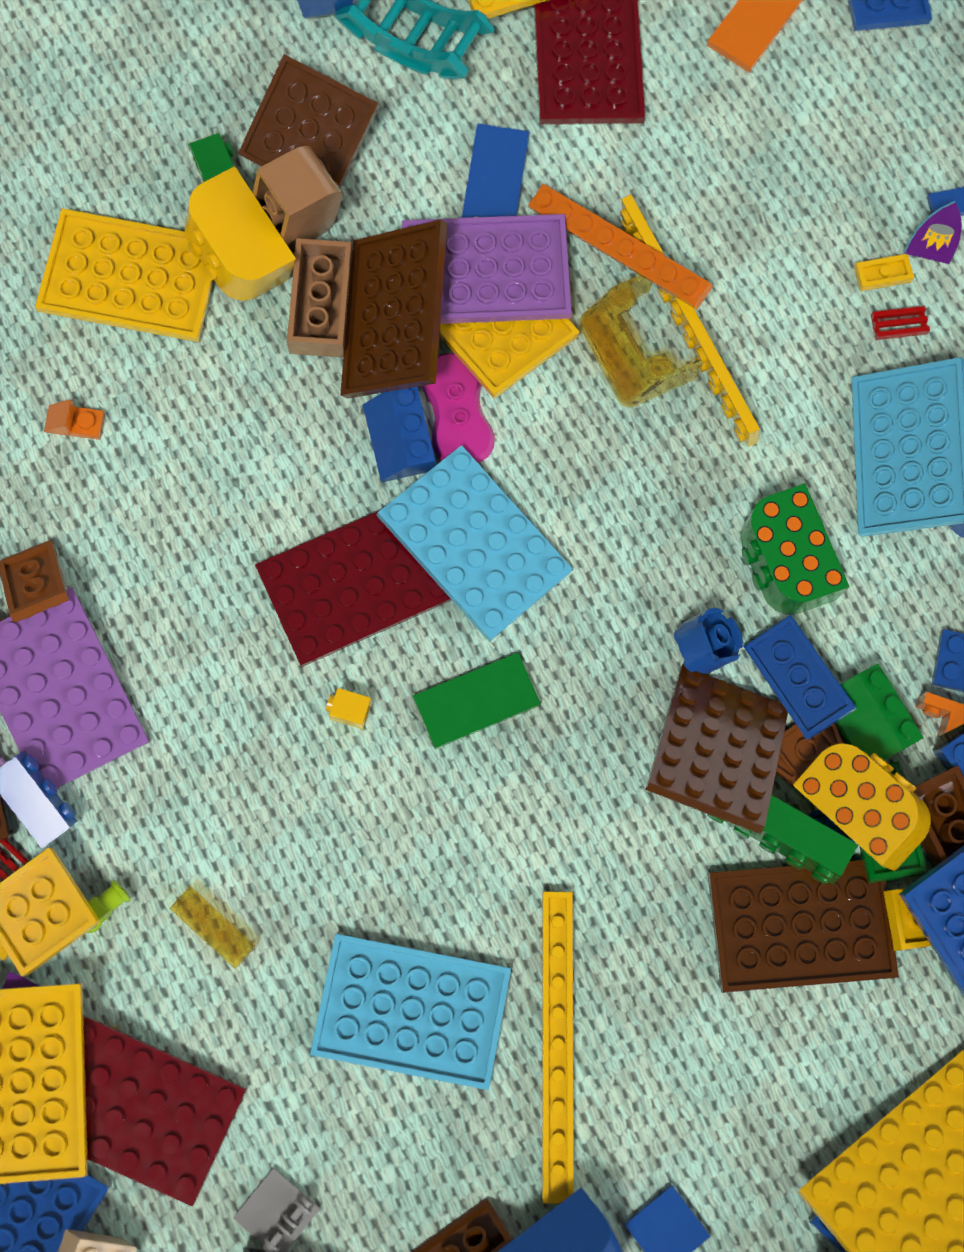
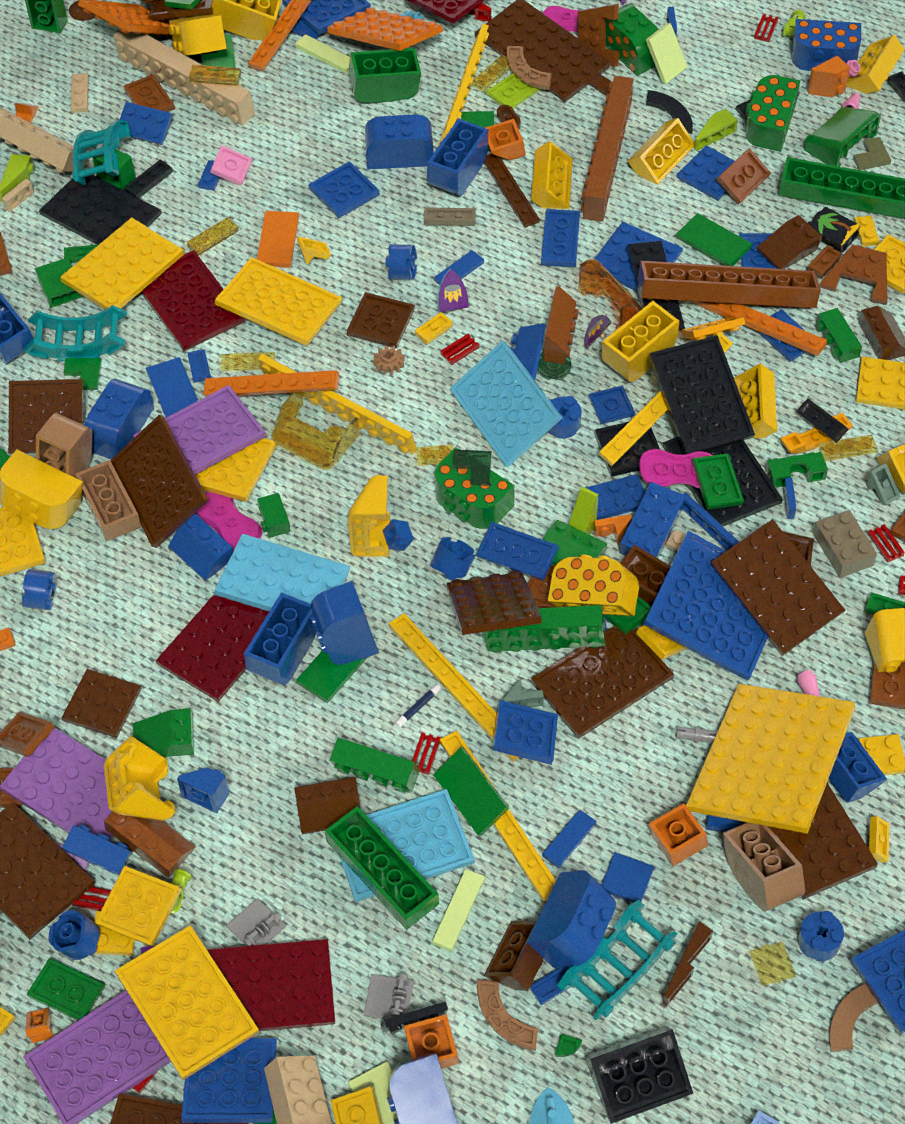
camera: 20 degrees left, 20 degrees down
(109, 815) = (151, 841): none -> dark orange slope
(124, 739) = (133, 781): none -> yellow windscreen
(157, 585) = (101, 703): none -> reddish brown plate
(163, 380) = (38, 587): none -> blue brick
(172, 1013) = (256, 924): none -> light grey hinge
(206, 679) = (167, 732): none -> green slope
(212, 792) = (204, 788): none -> blue slope
(213, 927) = (252, 865): clear yellow plate -> none
(348, 708) = (261, 705): yellow brick -> none
(350, 902) = (325, 803): none -> reddish brown slope
(361, 1043) = (382, 867): none -> green brick
(396, 182) = (118, 416): none -> blue brick
(404, 84) = (87, 368): none -> green tile
(420, 638) = (281, 640): none -> blue brick
(430, 1144) = (458, 910): none -> yellowish green tile
(436, 887) = (374, 764): none -> green brick
(505, 669) = (342, 625): none -> blue brick
(517, 439) = (273, 515): none -> green brick
(533, 879) = (430, 739): none -> red tile
(539, 993) = (471, 791): none -> green tile
(545, 822) = (418, 705): none -> dark blue bar
(547, 158) = (199, 365): none -> blue tile
(610, 828) = (446, 674): none -> yellow plate
(612, 184) = (243, 361): none -> clear yellow tile
(626, 1128) = (569, 839): none -> blue tile
(630, 530) = (368, 519): none -> yellow windscreen
(655, 951) = (525, 732): none -> blue plate
(658, 562) = (398, 535): none -> blue brick
(675, 892) = (530, 699): none -> sand green slope
(702, 119) = (278, 301): none -> yellow plate
(766, 1217) = (678, 834): none -> orange brick
(776, 465) = (432, 454): none -> clear yellow plate
(792, 62) = (313, 248): none -> yellow slope
(807, 293) = (388, 360): none -> medium nougat gear
(821, 220) = (380, 320): none -> reddish brown plate
(821, 527) = (477, 461): none -> clear green tile
(877, 1080) = (696, 734): none -> light grey pin
(898, 148) = (401, 261): none -> blue brick
(920, 677) = (585, 511): none -> lime slope

